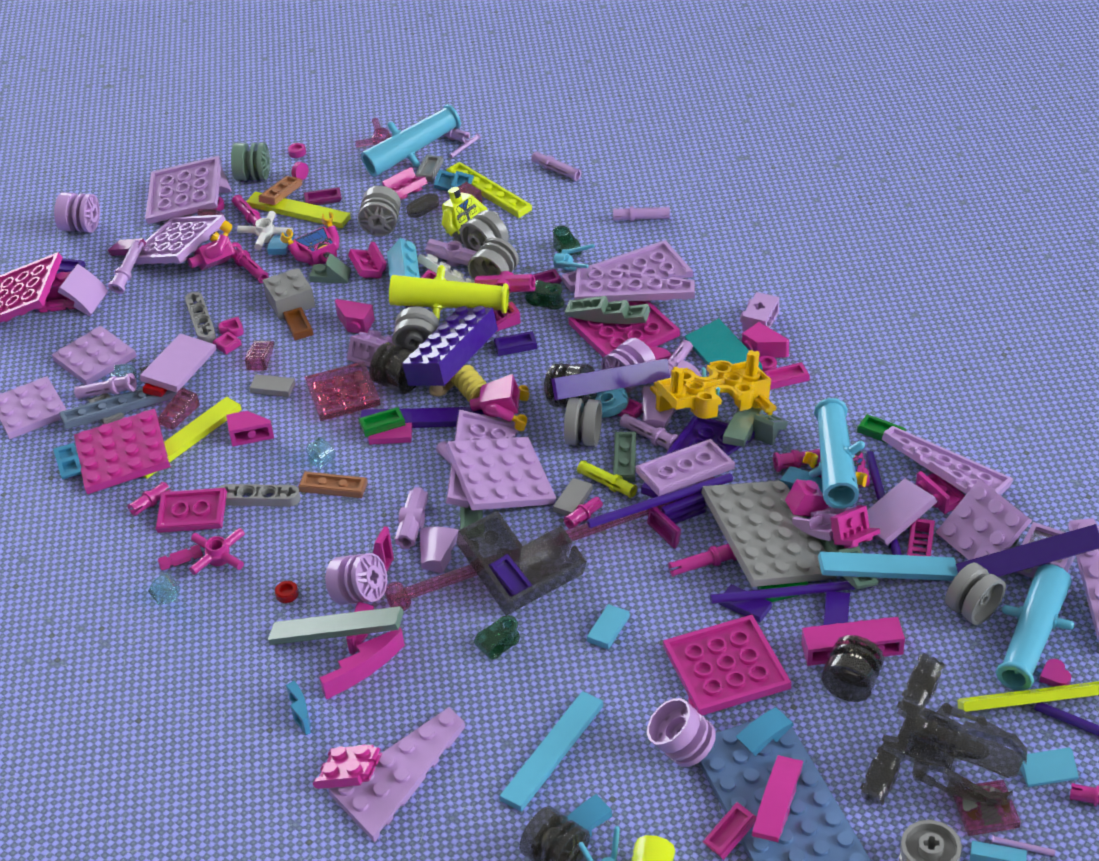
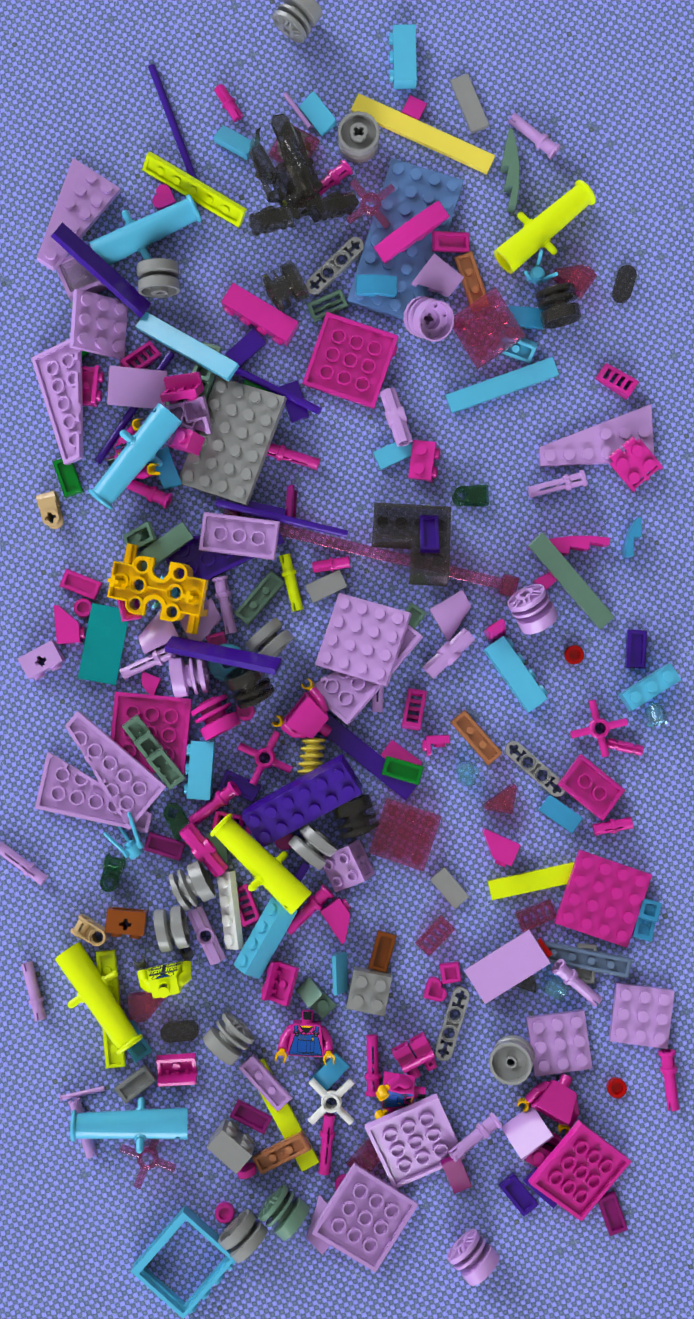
camera: 150 degrees left, 45 degrees up
(20, 358) = (616, 1087): none -> red tile
(72, 316) = (554, 1101): none -> dark pink torso
(129, 316) = (516, 1070): none -> light grey wheel
(188, 606) = (649, 687): none -> medium azure brick
(205, 477) = (561, 814): none -> dark azure slope
(217, 284) = (409, 1061): none -> dark pink hips
(225, 632) = (636, 649): none -> dark purple tile
(271, 453) = (502, 801): none -> clear pink slope
(274, 134) = (243, 1236): none -> light grey wheel
(304, 133) = (163, 1291): none -> medium azure window
(323, 168) = (231, 1145): none -> light grey brick
(324, 291) = (339, 972): none -> medium azure slope
(329, 537) = (515, 674): none -> medium azure brick
(339, 211) = (265, 1082): none -> lavender tile
(368, 457) = (437, 740): none -> dark pink bracket
(381, 314) = (315, 903): none -> dark pink pin
(408, 454) = (412, 725): none -> dark pink slope
(410, 709) = (567, 484): none -> lavender pin
(421, 826) = (620, 375): none -> dark pink slope
(503, 177) = (95, 993): none -> neon yellow piece
(511, 363) = (273, 761): none -> dark pink bar
(523, 319) = (221, 799): none -> dark pink pin
(526, 228) = (117, 915): none -> dark orange brick
(545, 210) = (88, 930): none -> tan piece
(558, 329) = (200, 770): none -> medium azure brick
(569, 794) = (522, 350): none -> medium azure slope
(570, 632) = (424, 460): none -> dark pink bracket
(578, 350) = (215, 717): none -> dark pink wheel
(614, 775) = (487, 328): none -> clear pink plate
(633, 646) = (396, 417): none -> lavender piece
(673, 819) = (472, 280): none -> nougat tile
(710, 785) = (438, 277): none -> lavender slope
(791, 712) = (323, 299): none -> sand green tile
(827, 733) = (335, 266): none -> light grey beam
(848, 807) = (373, 197): none -> clear pink bar
(869, 398) = (50, 506): none -> tan piece
(914, 805) = (335, 176): none -> dark pink pin

